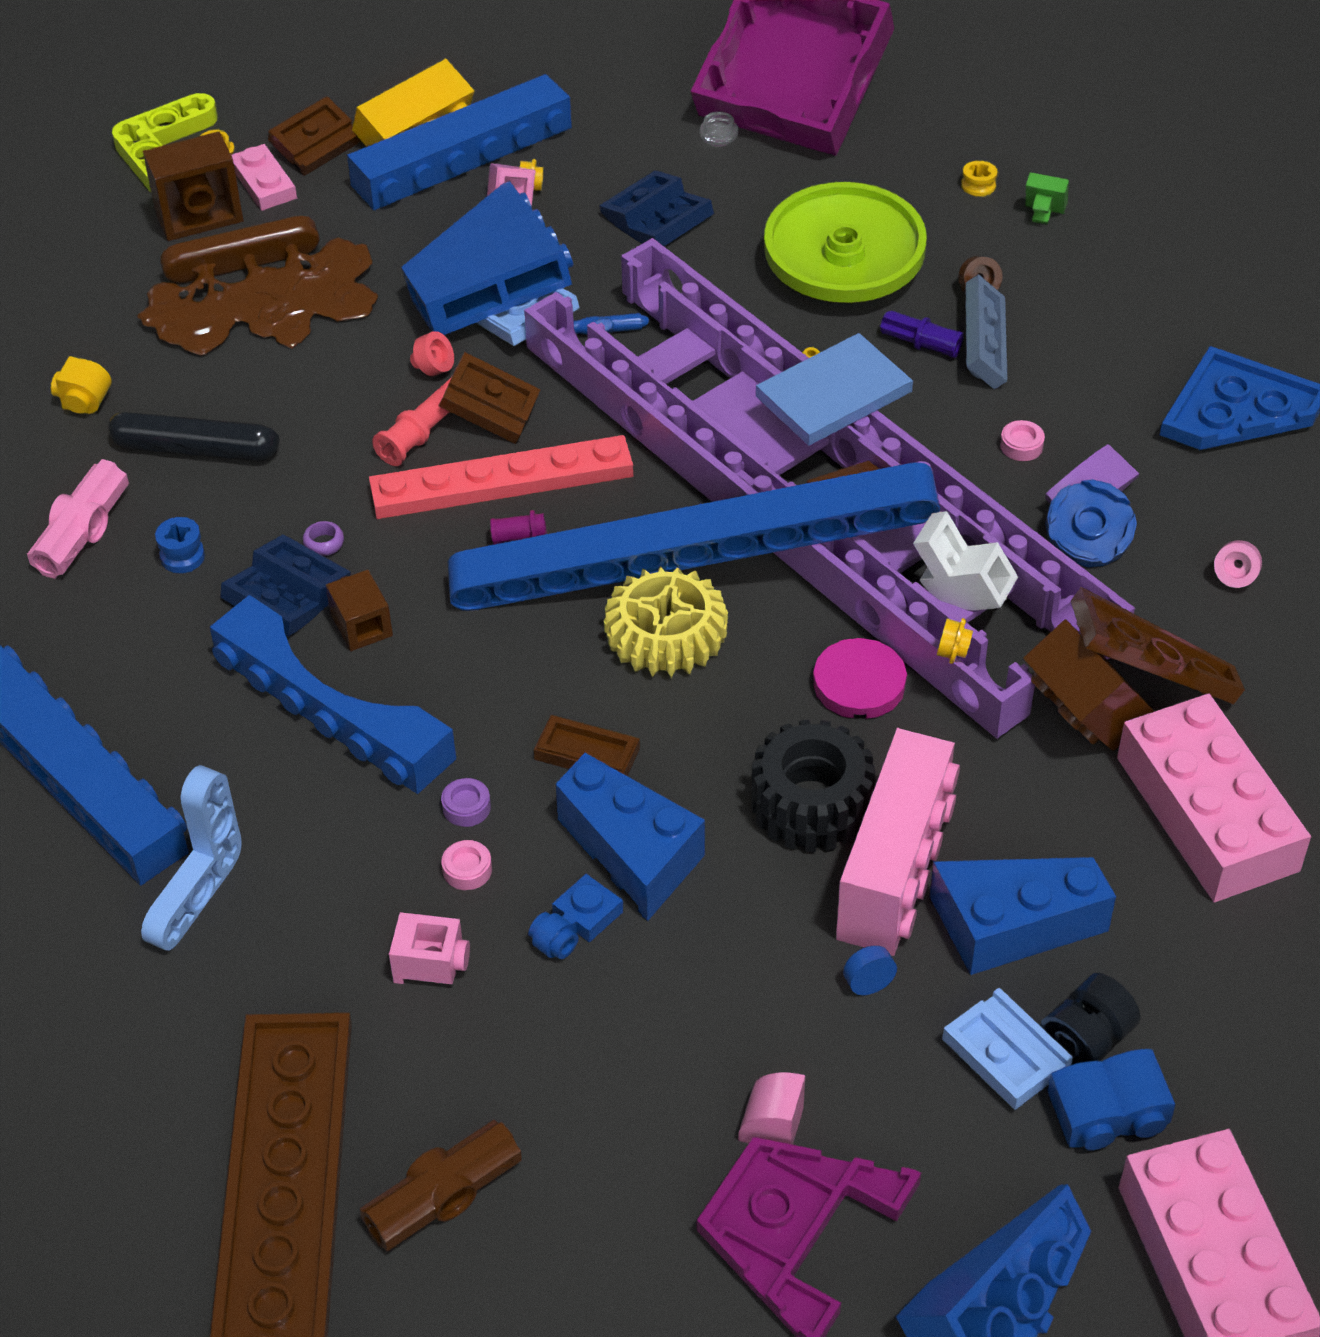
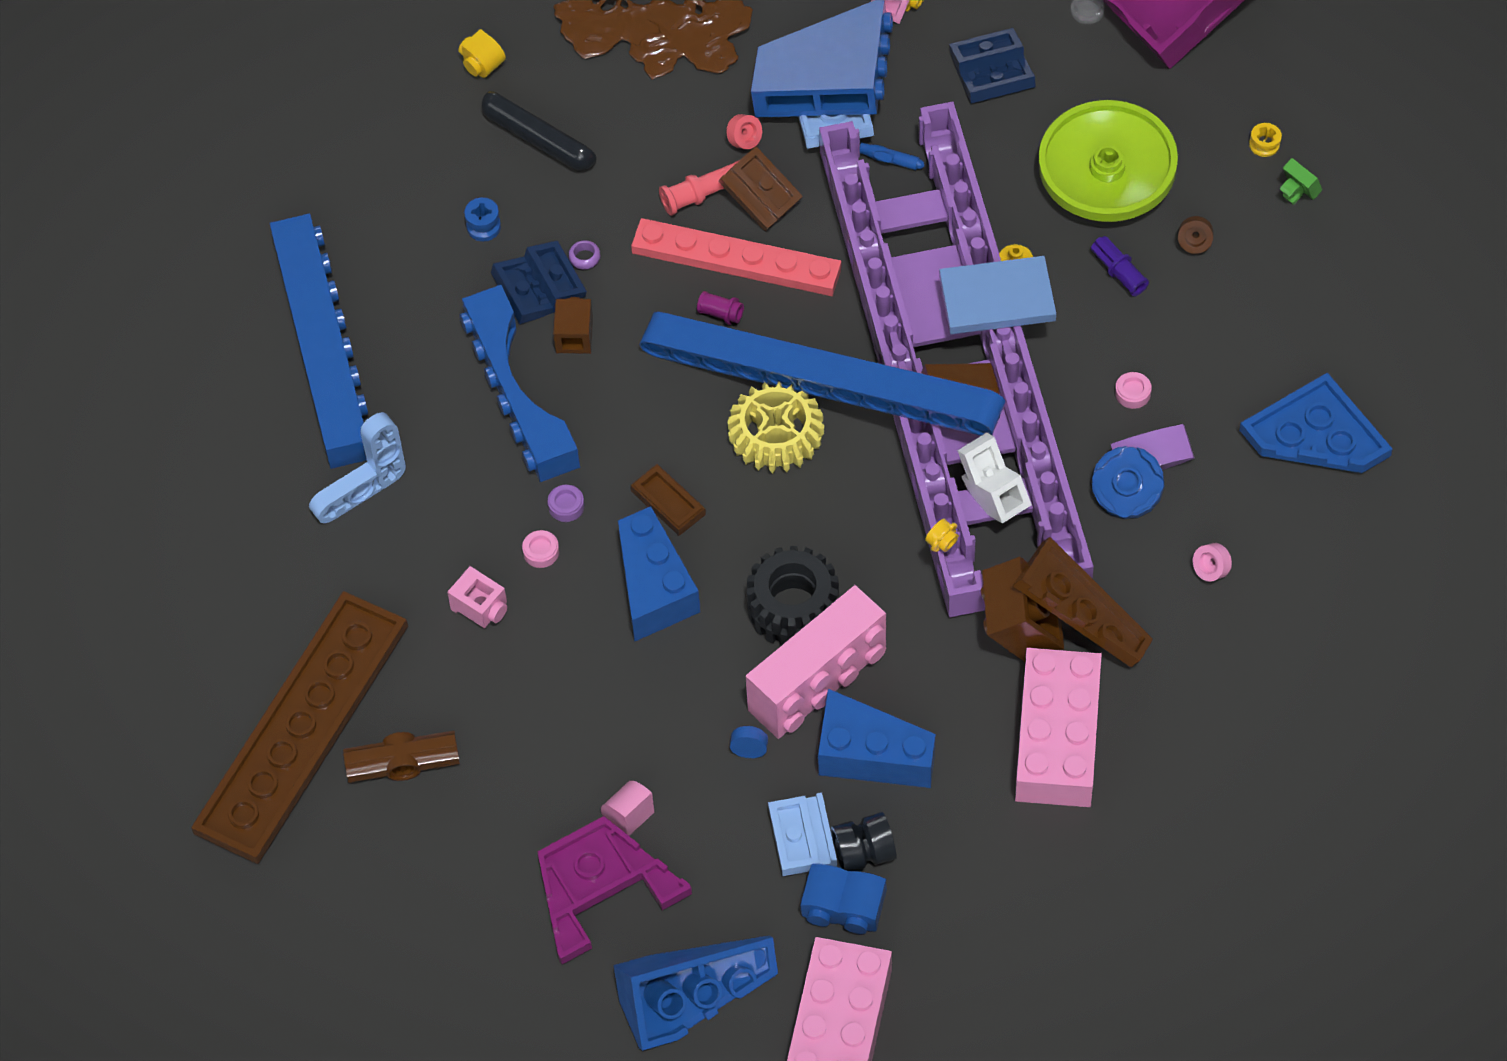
camera: 30 degrees right, 10 degrees up
(78, 519) = (425, 167): bright pink piece -> none
(581, 910) = (595, 615): blue plate -> none
(859, 678) = (885, 529): dark pink tile -> none
(986, 332) = (1166, 285): sand blue plate -> none

